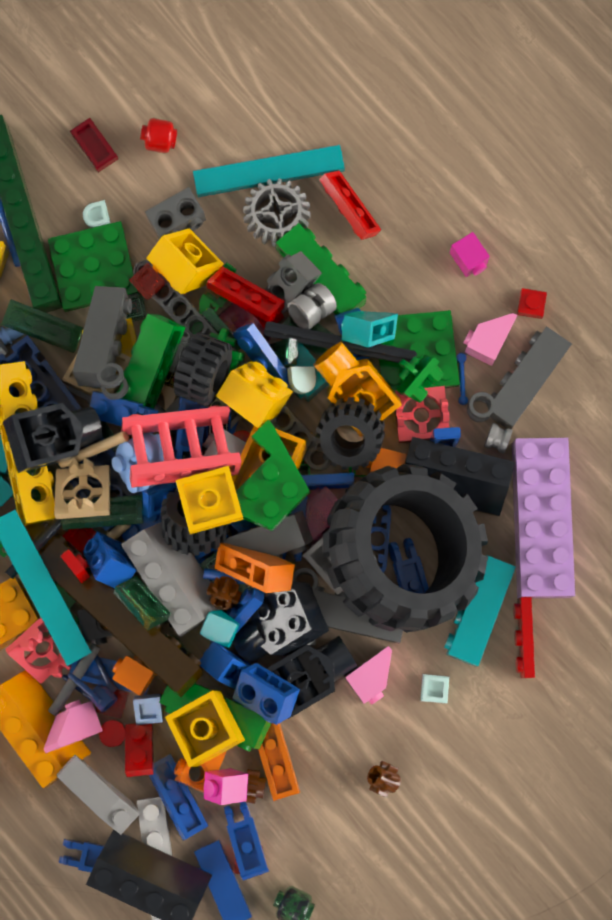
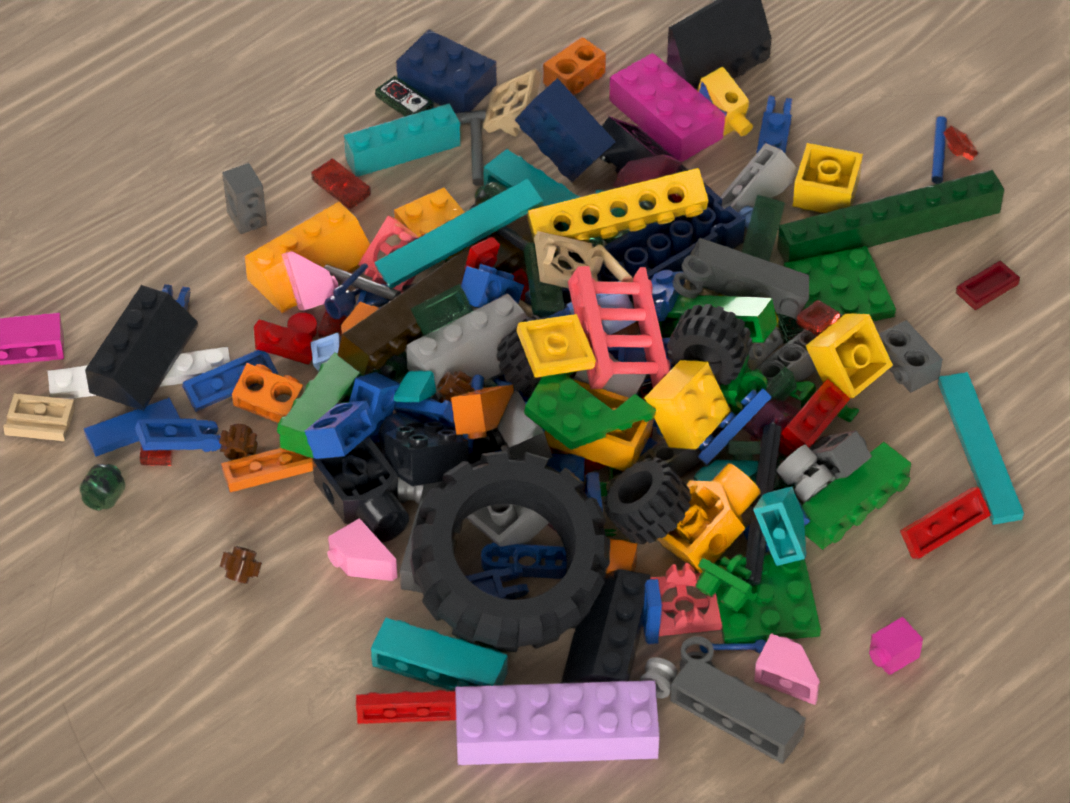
camera: 85 degrees right, 30 degrees down
(50, 435) = (624, 219): black brick -> none
(96, 214) = (902, 290): light aqua tile -> none
(98, 794) = (234, 305): light grey slope -> none
(159, 135) = (1006, 337): red head -> none
(204, 728) = (302, 372): yellow brick -> none
(225, 786) = (238, 403): brick -> none
(286, 210) = (925, 445): light grey gear -> none
(301, 379) = (712, 461): light aqua tile -> none
(434, 688) = (345, 621): light aqua tile -> none
(532, 303) = (840, 720): red plate -> none

